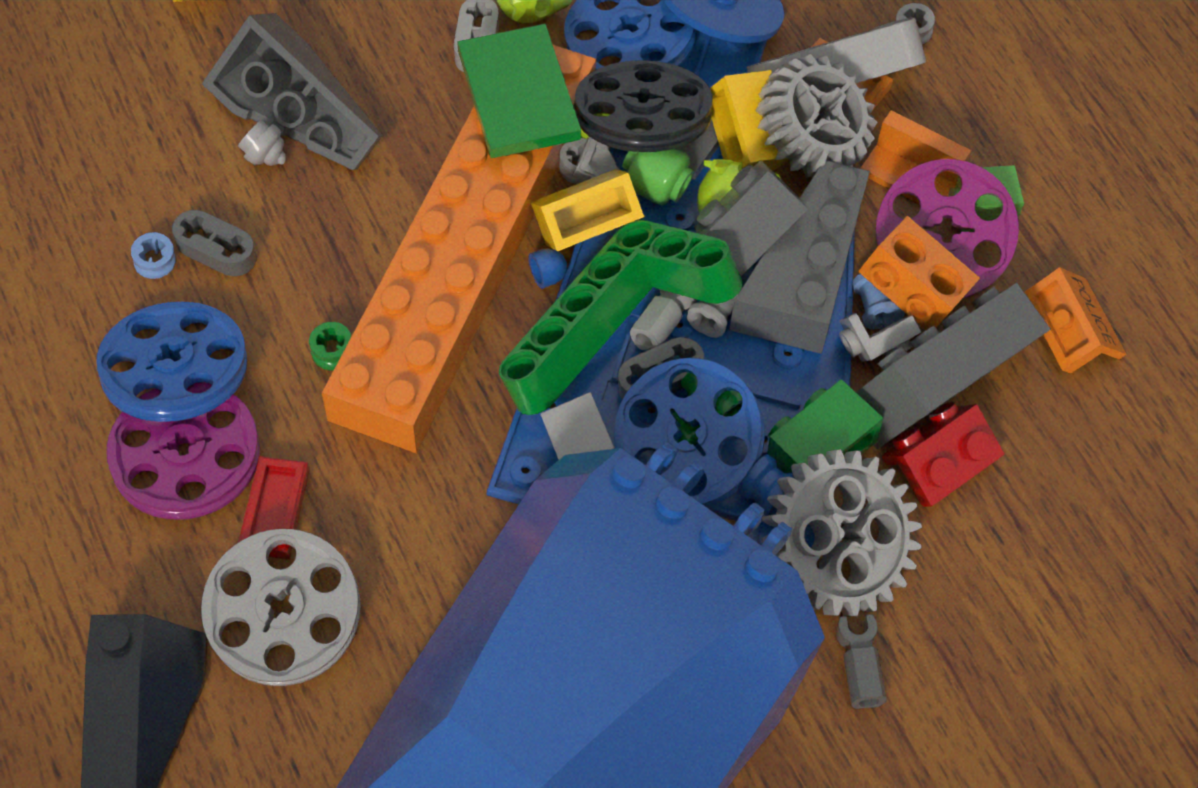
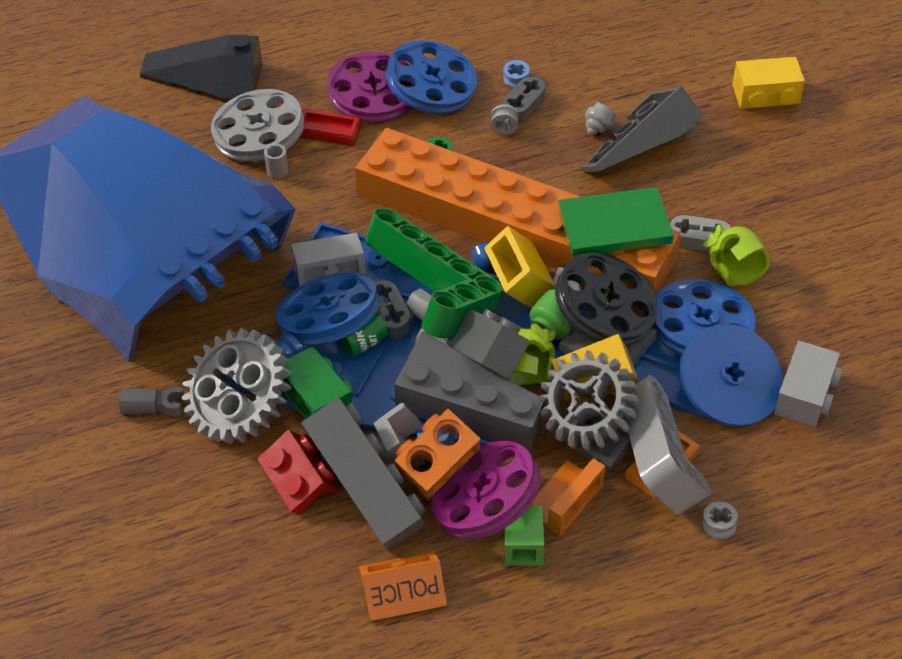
camera: 100 degrees right, 10 degrees down
(266, 259) = (504, 127): none -> light grey bush
(368, 551) = (276, 161): none -> light grey hinge

